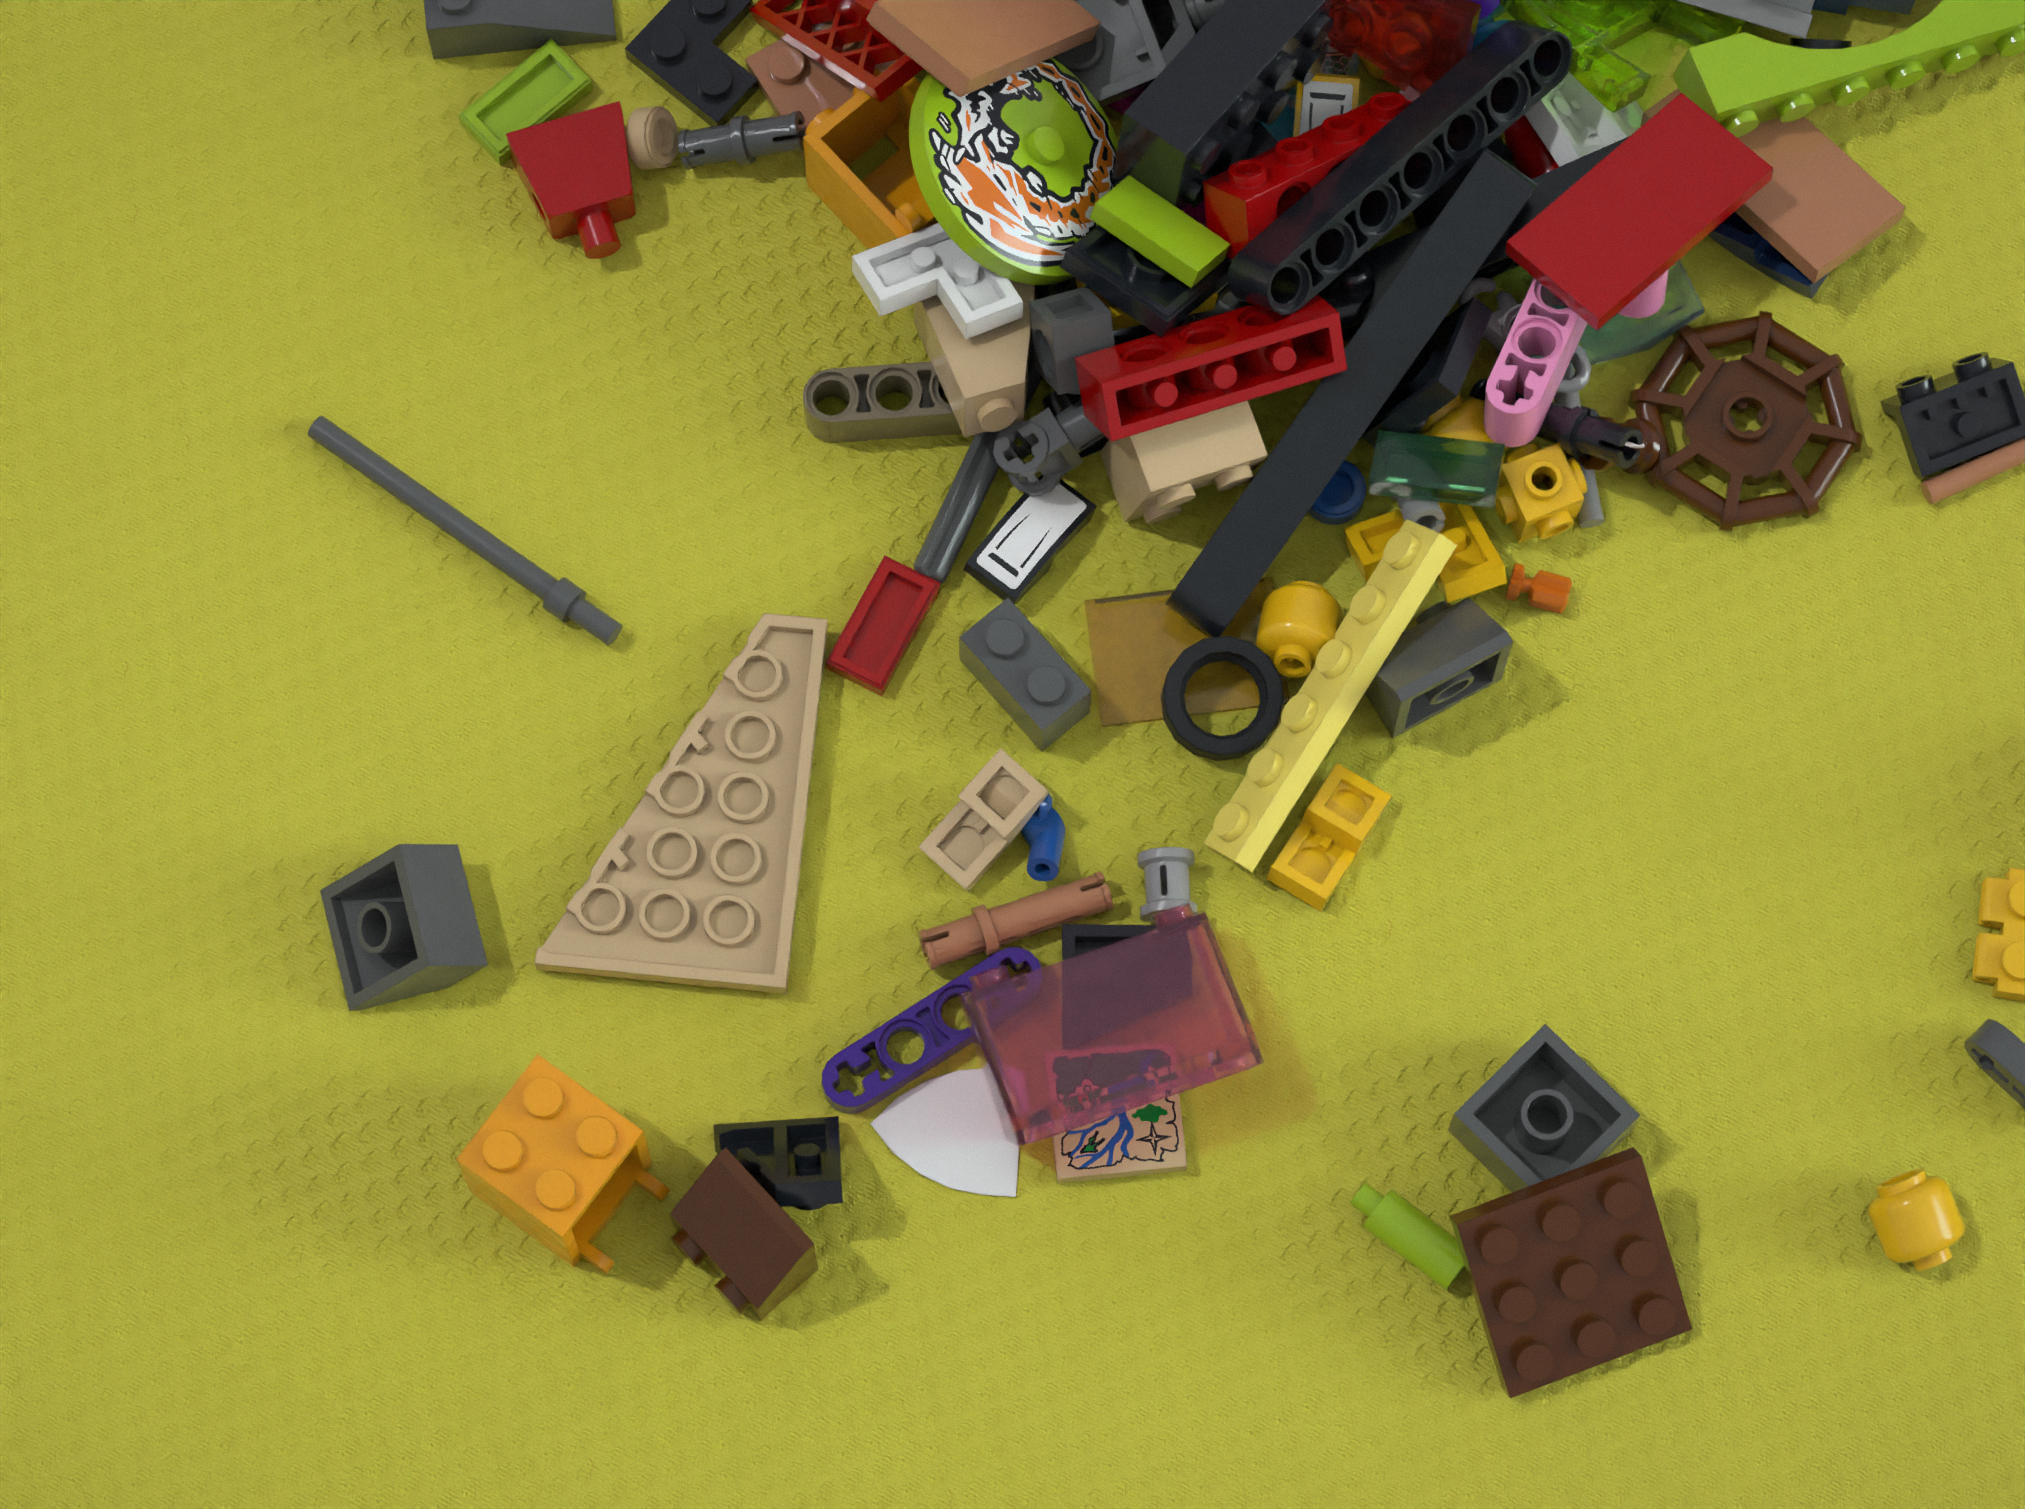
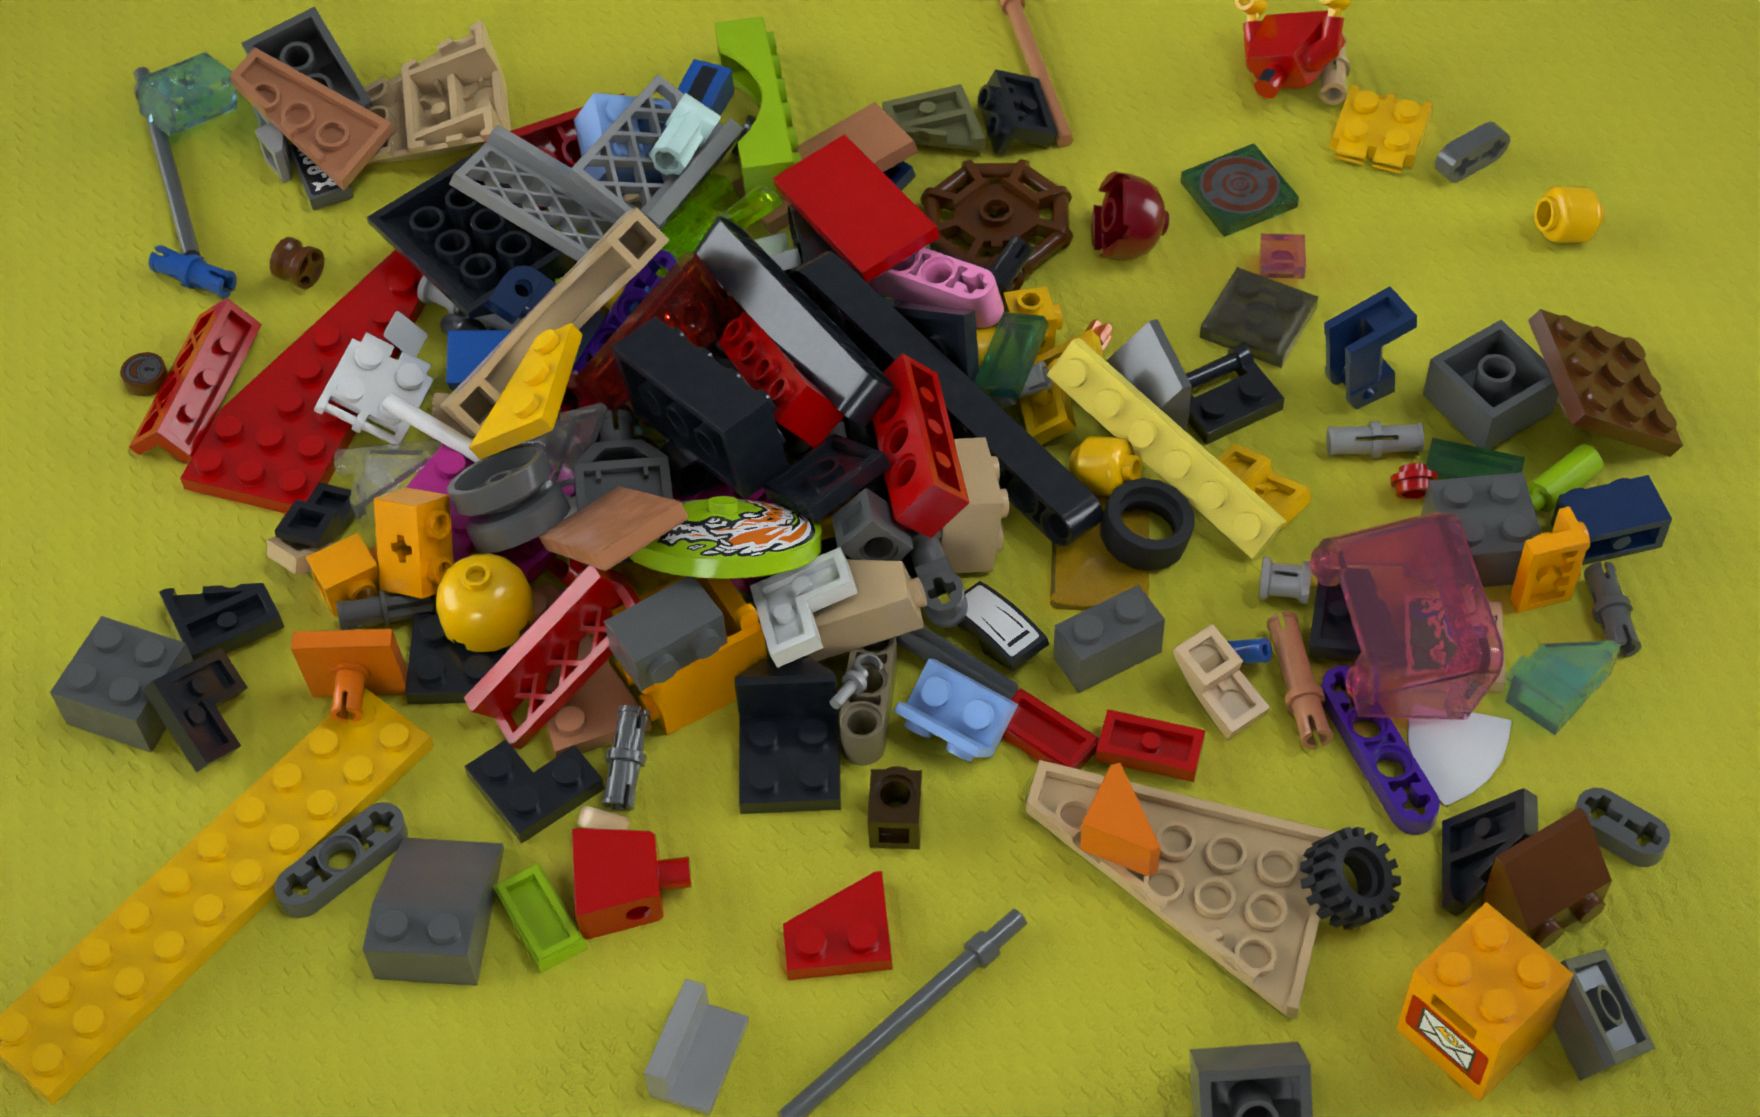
camera: 75 degrees left, 20 degrees down
(381, 309) = (694, 1050): none -> light grey panel
(563, 440) = (841, 933): none -> red wing
(582, 1304) = (1598, 1017): none -> dark grey slope
(707, 1038) = (1370, 870): none -> black tyre
(714, 444) = (895, 825): none -> dark brown brick
(732, 716) = (1118, 827): none -> orange slope
(801, 322) = (788, 738): none -> black plate
(850, 126) = (666, 632): none -> dark grey brick
(877, 374) = (855, 679): none -> light grey hand
(878, 508) = (957, 711): none -> light blue bracket
(880, 751) = (1150, 745): none -> red plate
(882, 1342) = (1623, 826): none -> dark grey beam
(1068, 1244) = (1559, 680): none -> clear light blue slope
(1159, 231) = (804, 460): lime tile -> none
(1206, 1311) = (1612, 607): none -> dark grey pin
(1224, 1206) = (1551, 564): none -> light orange bracket
(1292, 1129) = (1494, 518): none -> dark grey brick
(1349, 1298) = (1619, 517): none -> dark blue brick
(1366, 1036) = (1412, 480): none -> red plate
(1414, 1118) = (1461, 460): none -> clear green tile
(1437, 981) = (1406, 439): none -> light grey pin
(1468, 788) = (1235, 402): none -> black plate
(1567, 951) = (1357, 343): none -> dark blue piece
(1636, 805) = (1260, 315): none -> clear smoke plate
(1751, 822) = (1282, 256): none -> plate
(1763, 599) = (1129, 217): none -> dark red cylinder
(1880, 750) = (1239, 189): none -> tile
(1919, 302) = (938, 119): none -> olive wing

